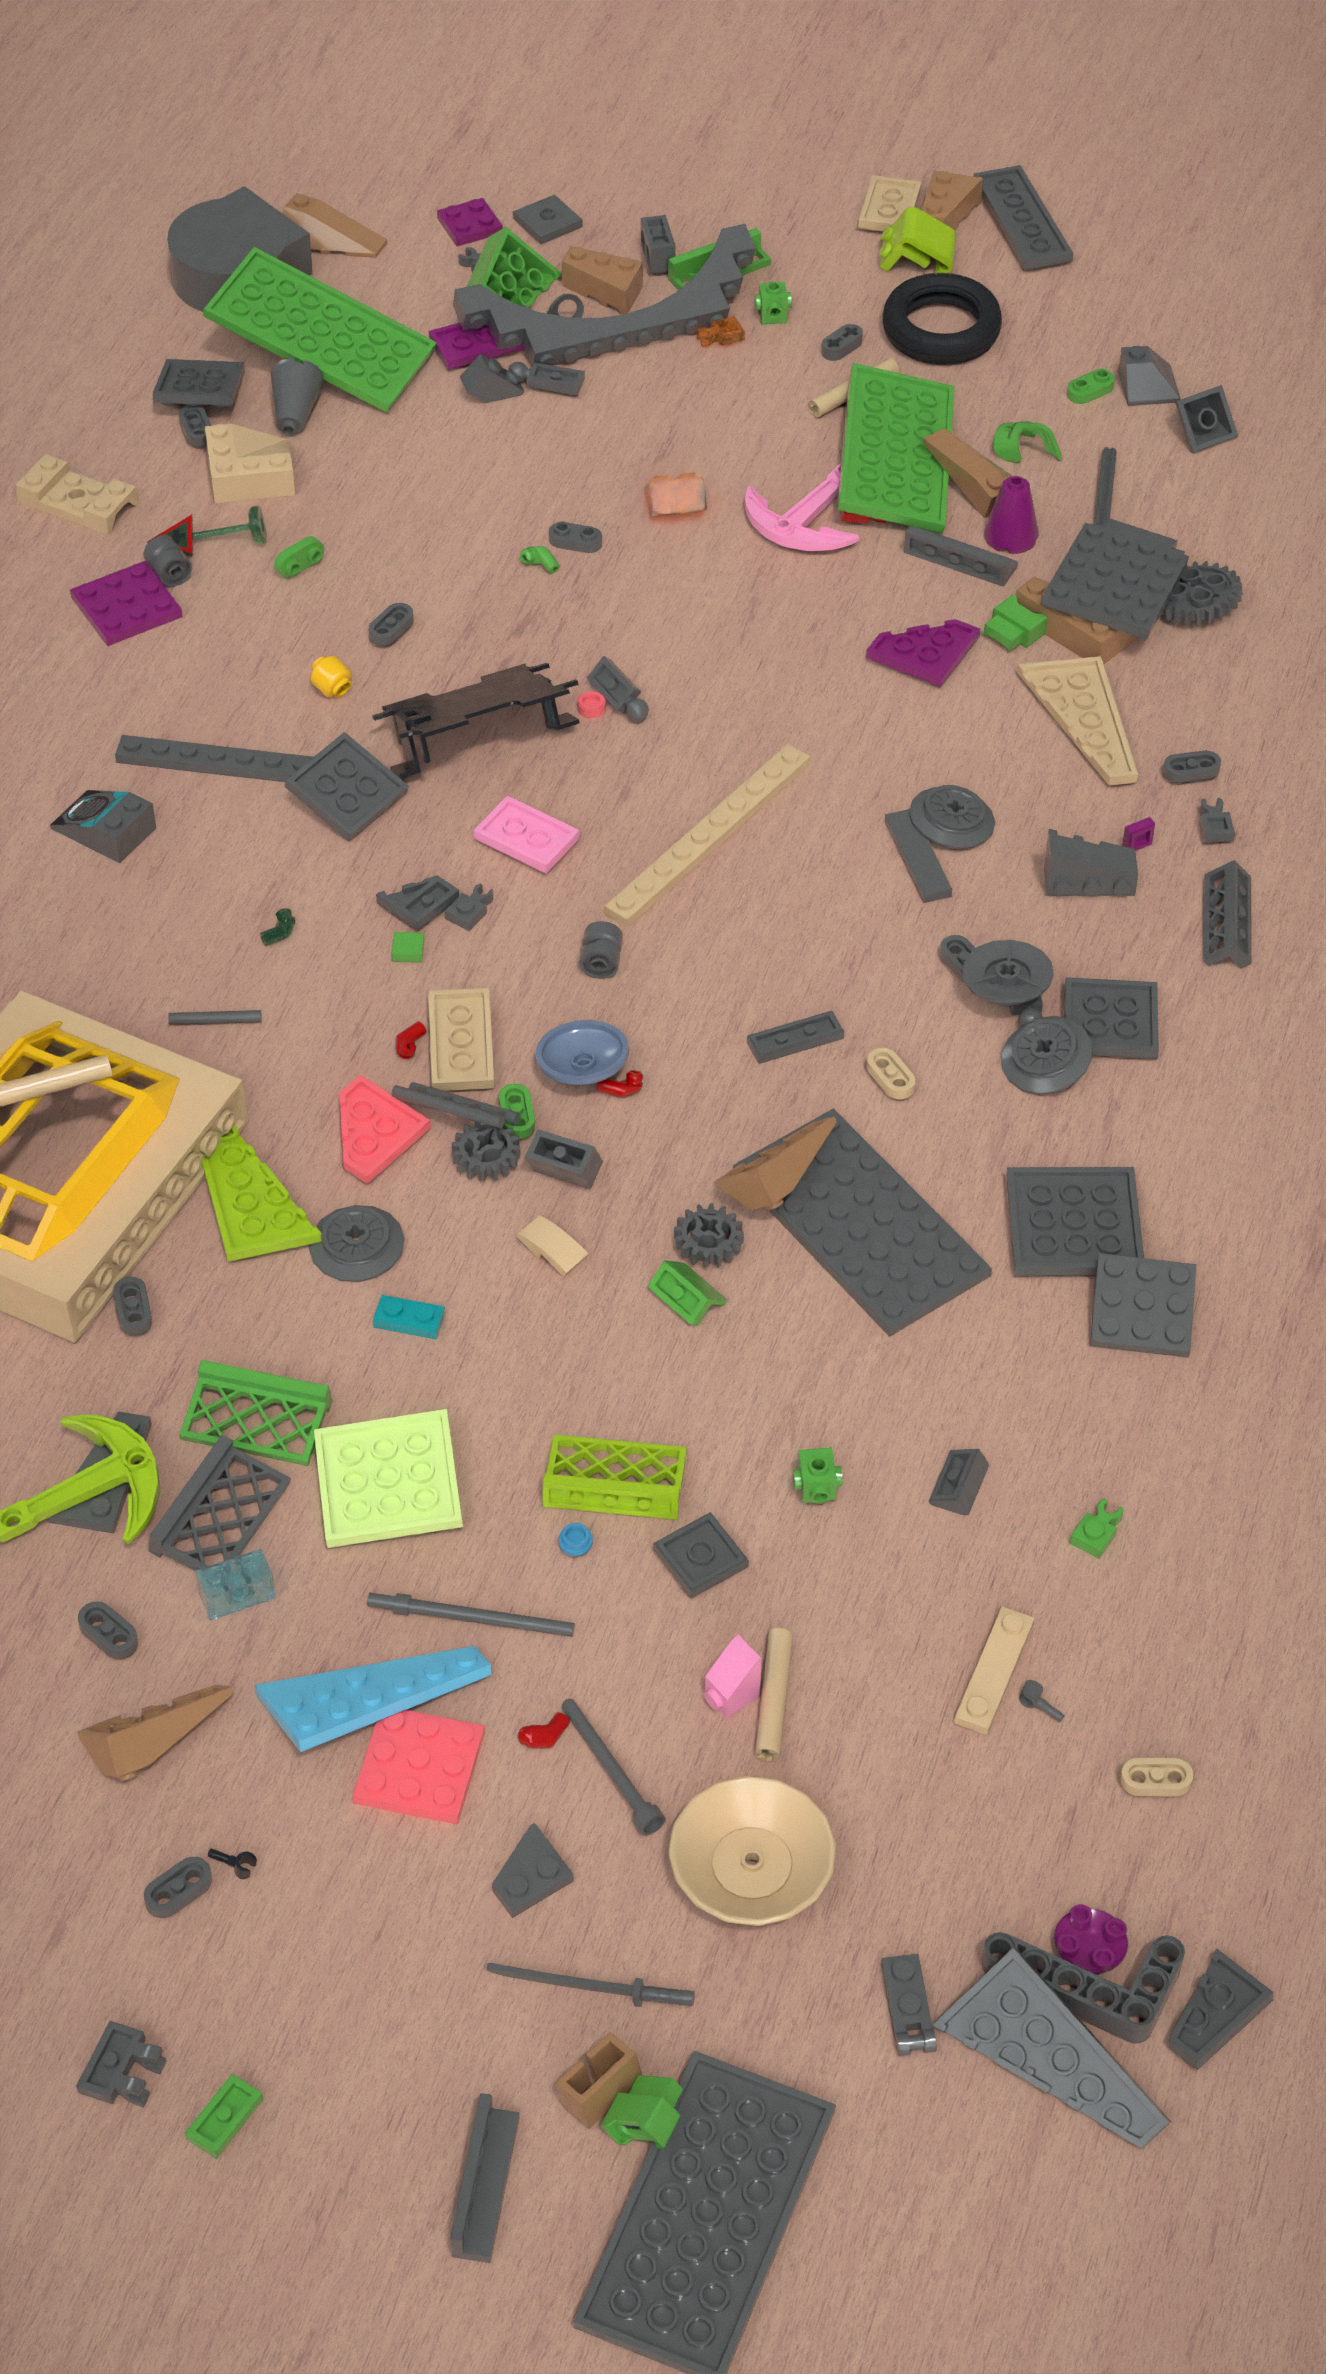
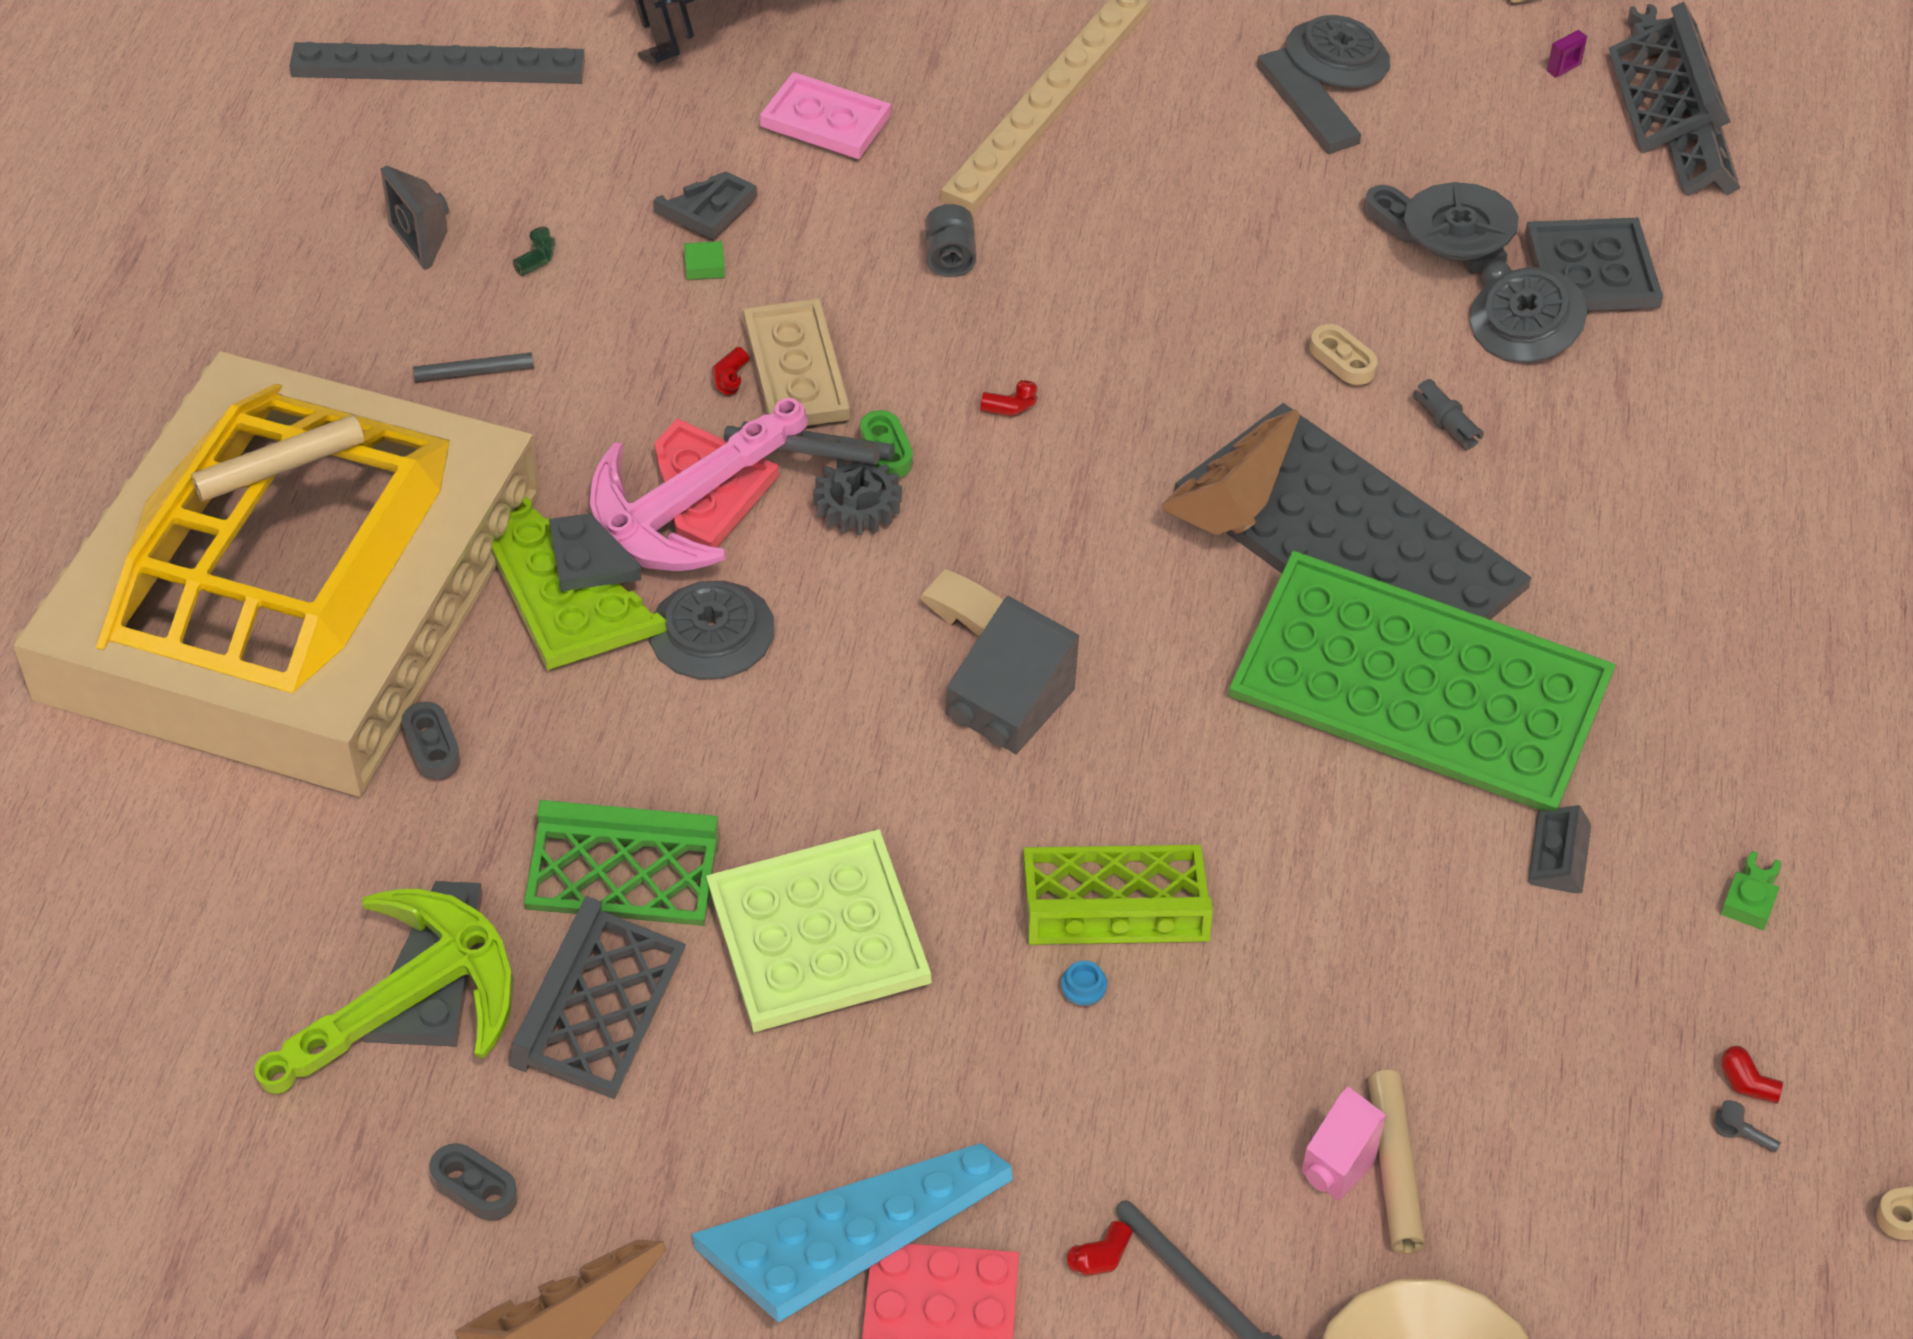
camera: 10 degrees left, 0 degrees up
(108, 822) = (294, 145): dark grey slope -> none
(191, 889) = (415, 214): none -> dark grey slope
(235, 1584) = (640, 1097): clear light blue brick -> none
(272, 1176) = (589, 554): none -> dark grey wing
(310, 1156) = (637, 522): none -> bright pink piece
(346, 786) = (590, 77): dark grey plate -> none
(403, 1604) = (873, 1097): dark grey bar -> none
(409, 1317) = (800, 716): teal plate -> none
(468, 910) = (771, 210): dark grey plate -> none
(564, 1159) = (962, 495): dark grey brick -> none
(571, 1304) = (1014, 676): none -> dark grey slope
(582, 1052) = (956, 363): sand blue dish -> none
(685, 1291) = (1151, 646): bright green panel -> none
(700, 1555) = (1254, 984): dark grey plate -> none
(708, 1235) = (1166, 572): dark grey gear -> none
(795, 1037) = (1212, 323): dark grey tile -> none
(817, 1475) = (1383, 862): bright green brick -> none
(883, 1341) = (1423, 681): none -> bright green plate
(961, 1130) = (1448, 414): none -> dark grey pin
(994, 1671) = (1673, 1094): tan plate -> none
(1050, 1665) = (1745, 1077): none -> red arm
(1071, 1216) = (1617, 510): dark grey plate -> none
(1088, 868) = (1518, 94): dark grey wedge -> none
(1143, 1305) = (1733, 603): dark grey plate -> none
(1234, 860) = (1699, 75): none -> dark grey fence

